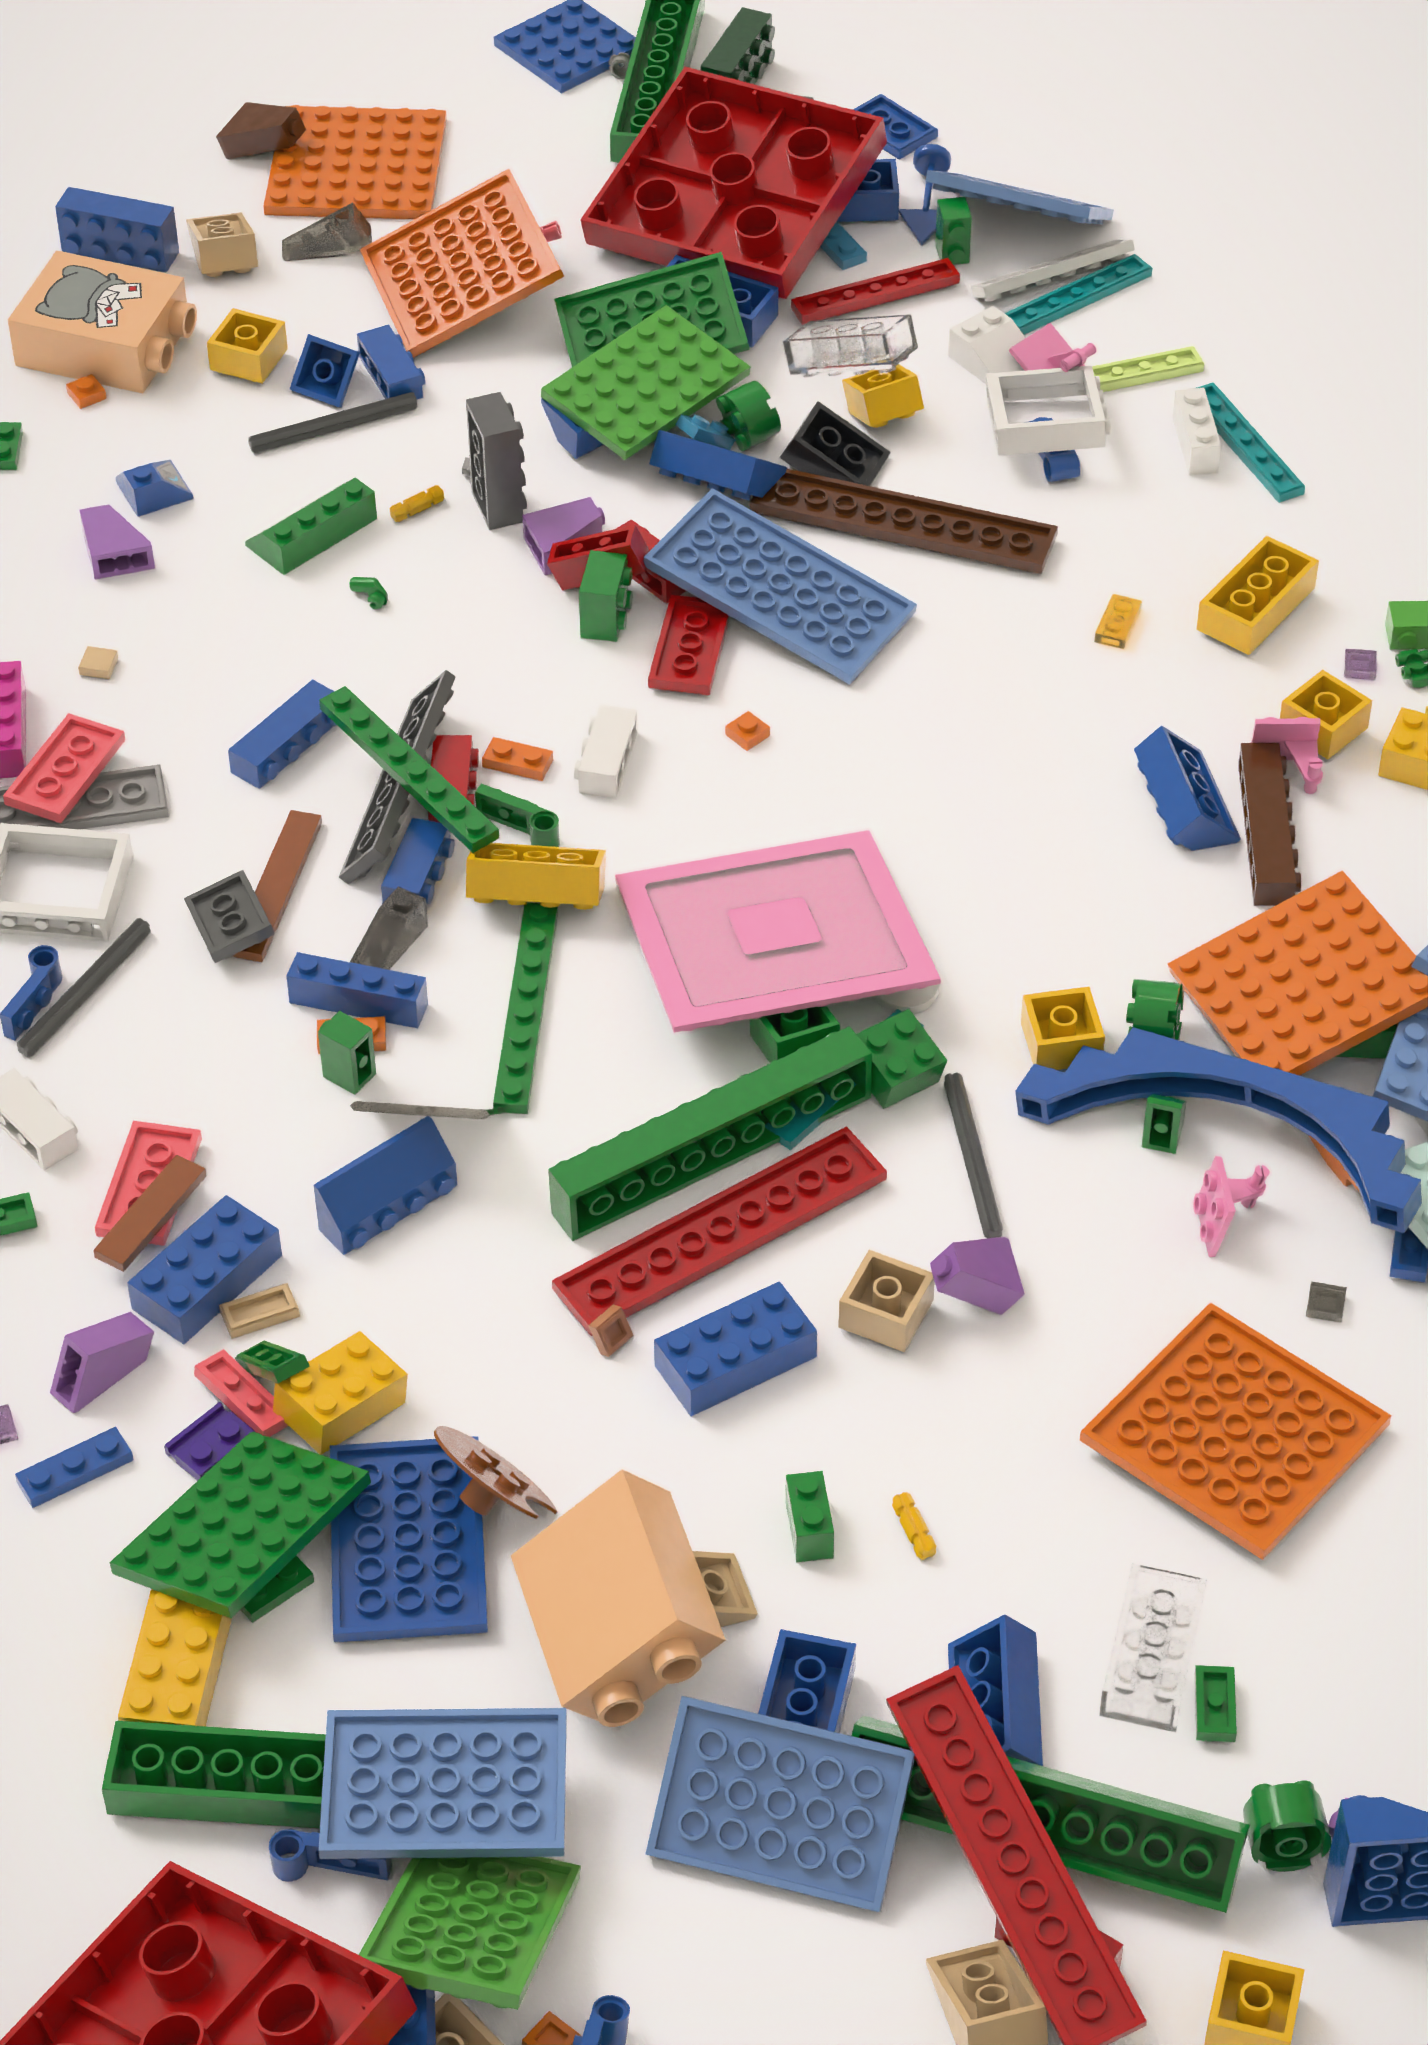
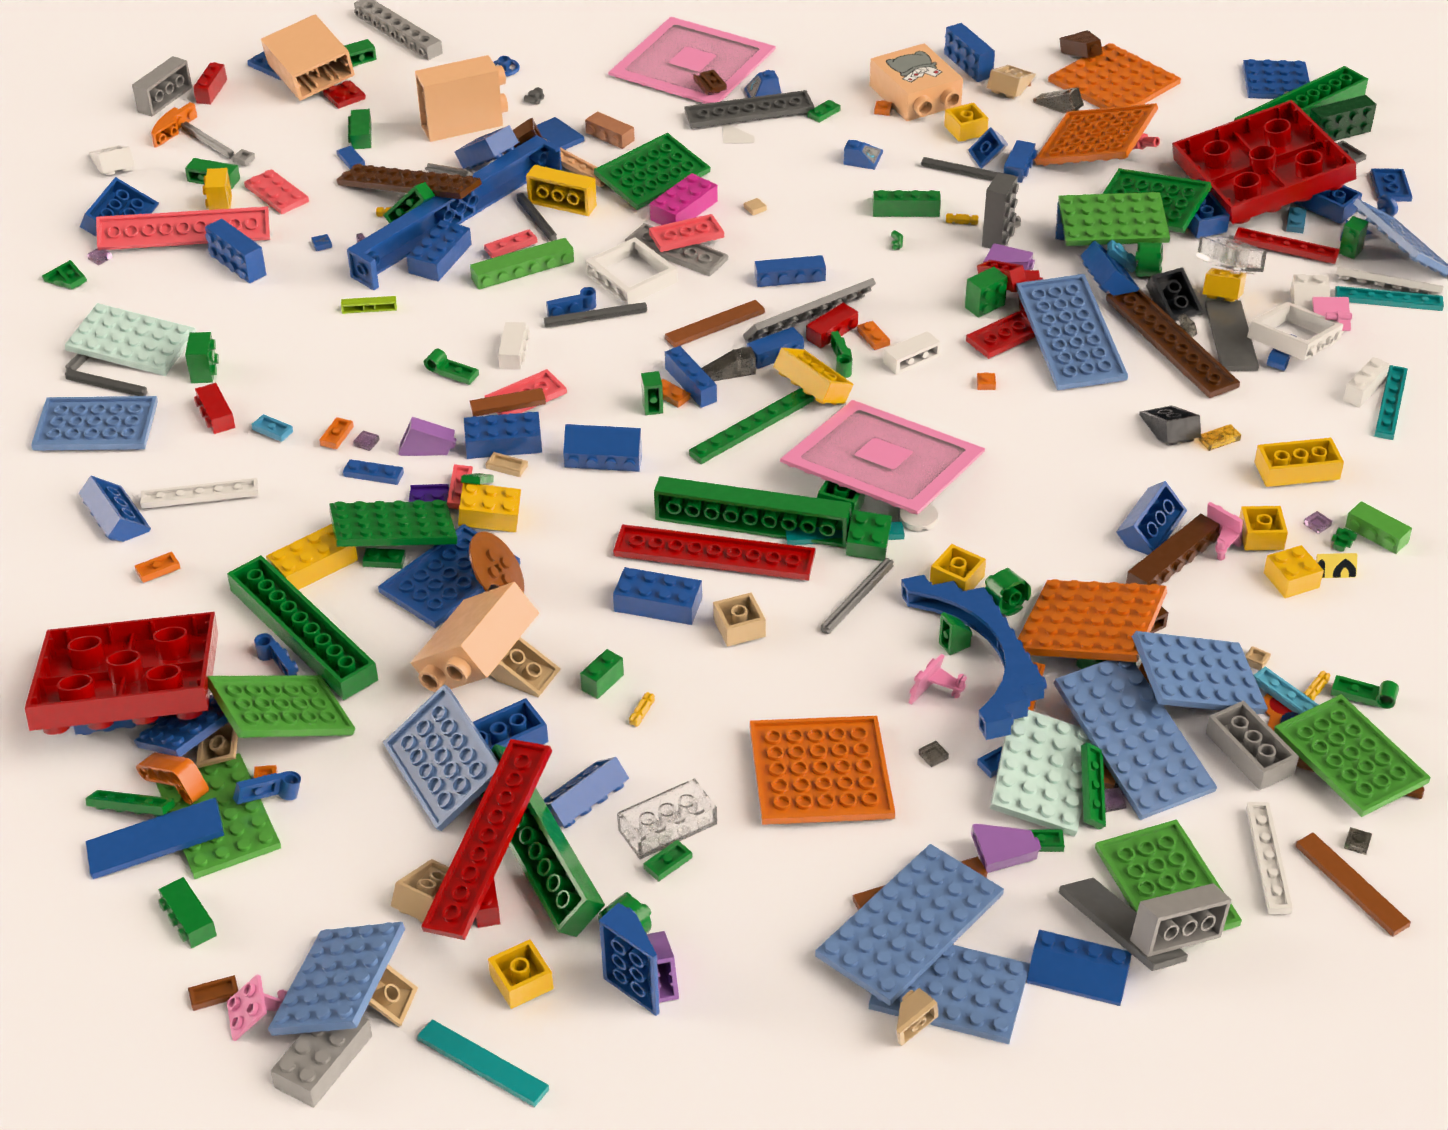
camera: 45 degrees right, 5 degrees down
(114, 543) = (814, 166): medium lavender slope -> none
(229, 916) = (676, 320): dark grey plate -> none
(409, 769) = (805, 303): green plate -> none
(428, 1109) = (650, 429): clear smoke piece -> none
(444, 1783) = (333, 655): medium blue plate -> none
(610, 1330) = (620, 557): nougat tile -> none
(901, 482) = (1188, 325): none -> clear smoke plate
(961, 464) = (1230, 335): none -> dark grey tile
(979, 1273) = (787, 632): medium lavender slope -> none
(1048, 638) = (1172, 424): none -> black slope
(1149, 368) = (1380, 345): yellowish green tile -> none

